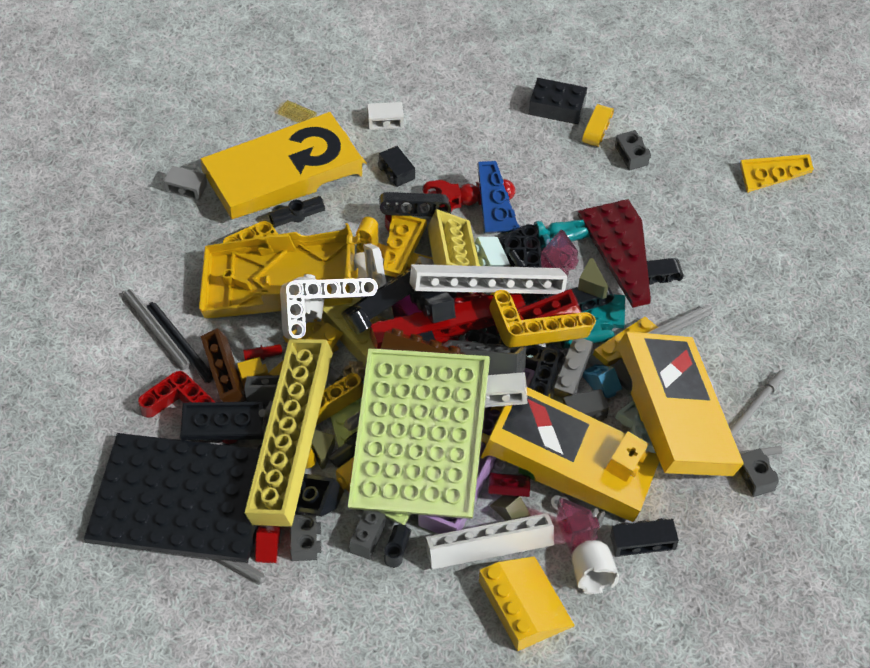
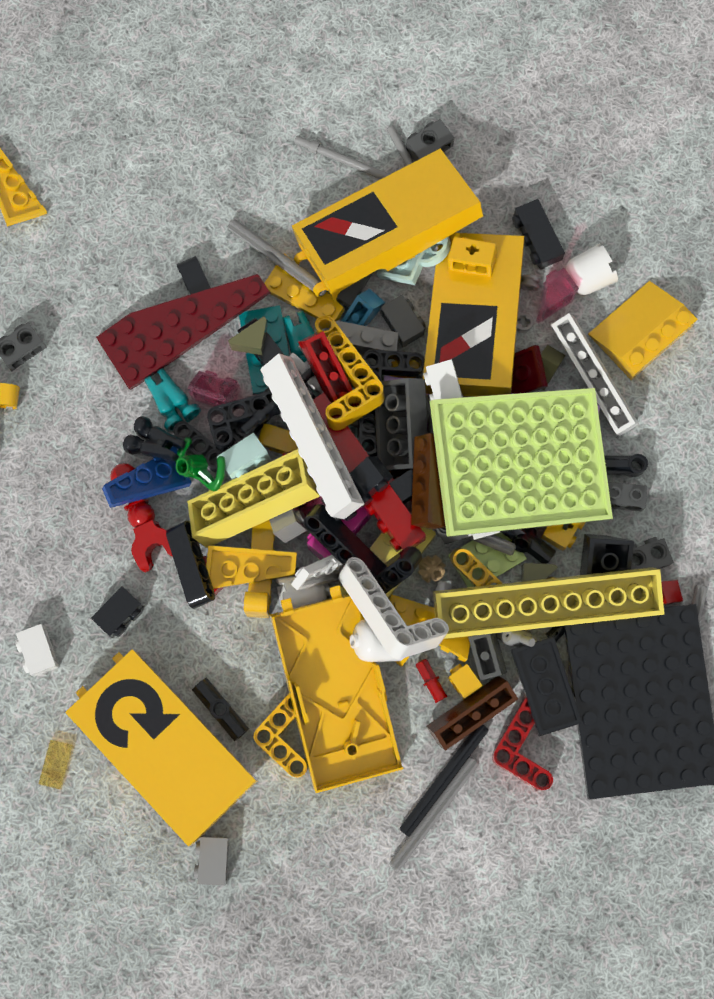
camera: 105 degrees left, 25 degrees up
(493, 223) = (196, 467): none -> green piece
(526, 209) = (157, 442): none -> black piece

